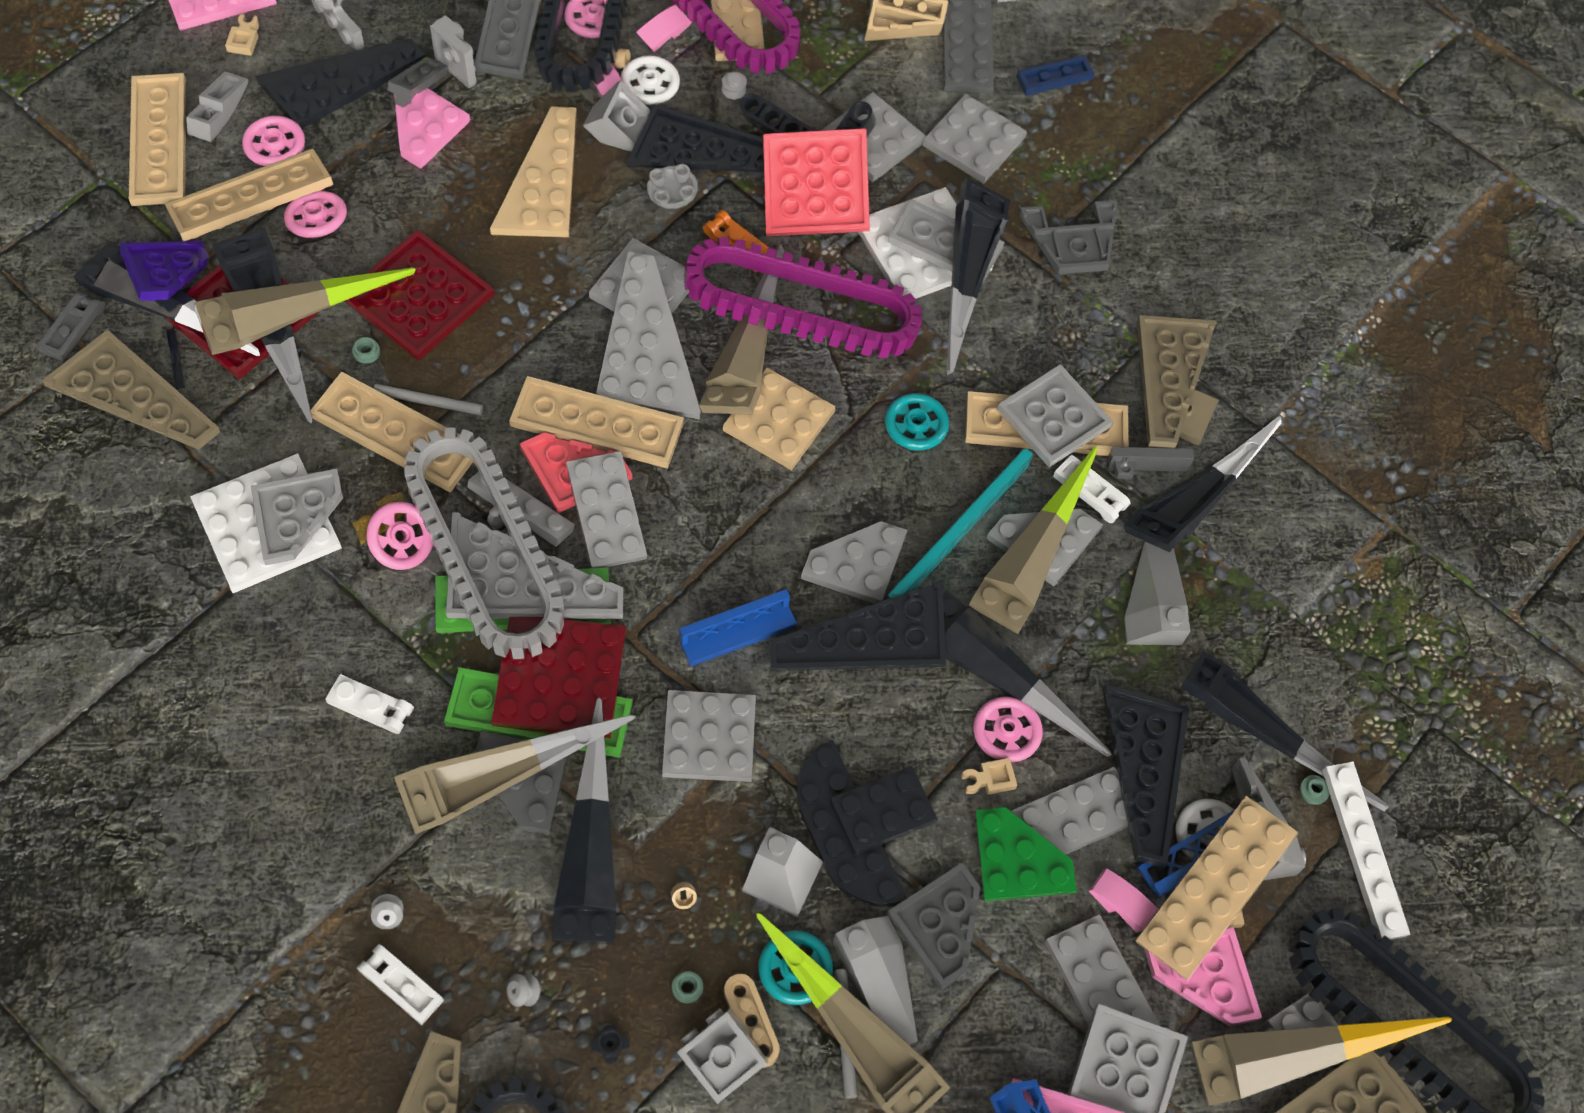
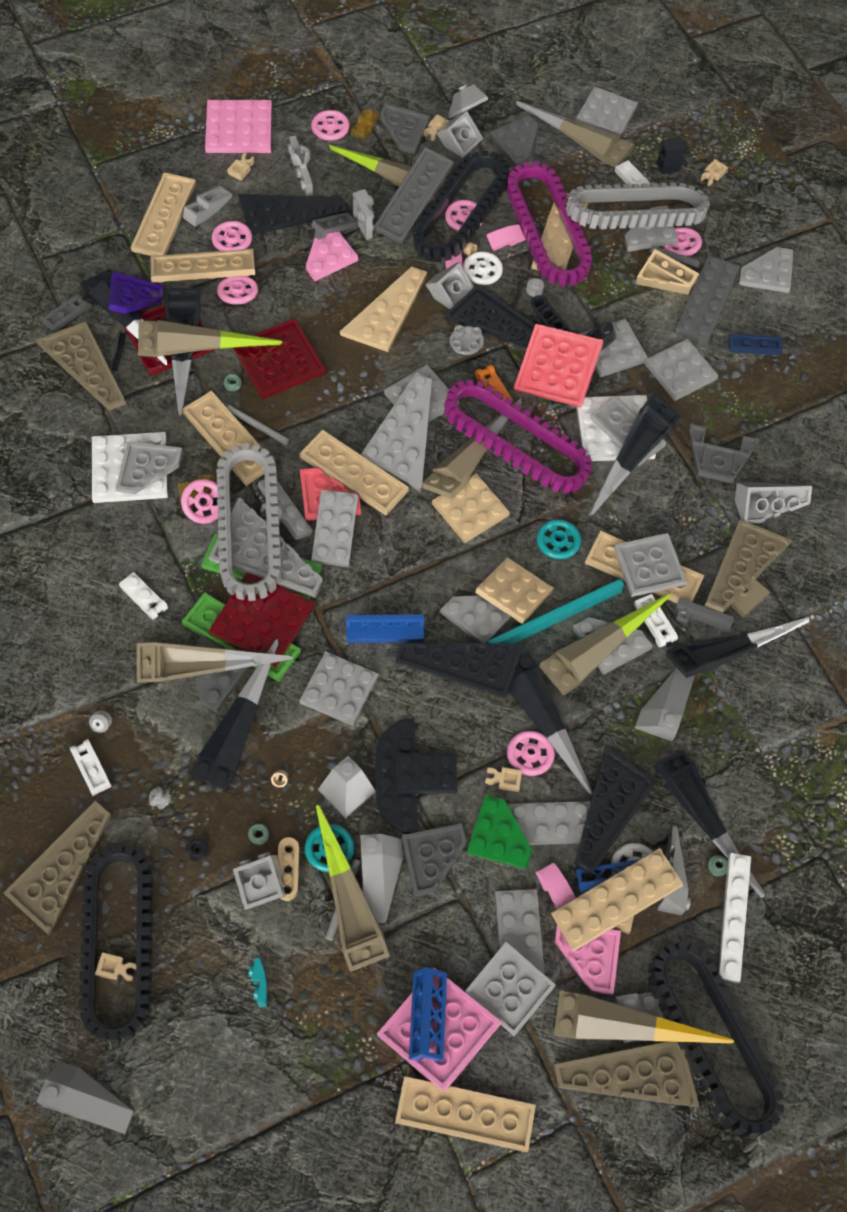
camera: 25 degrees right, 0 degrees up
(890, 512) = (514, 590): none -> tan plate
(1158, 279) = (767, 500): none -> light grey wedge

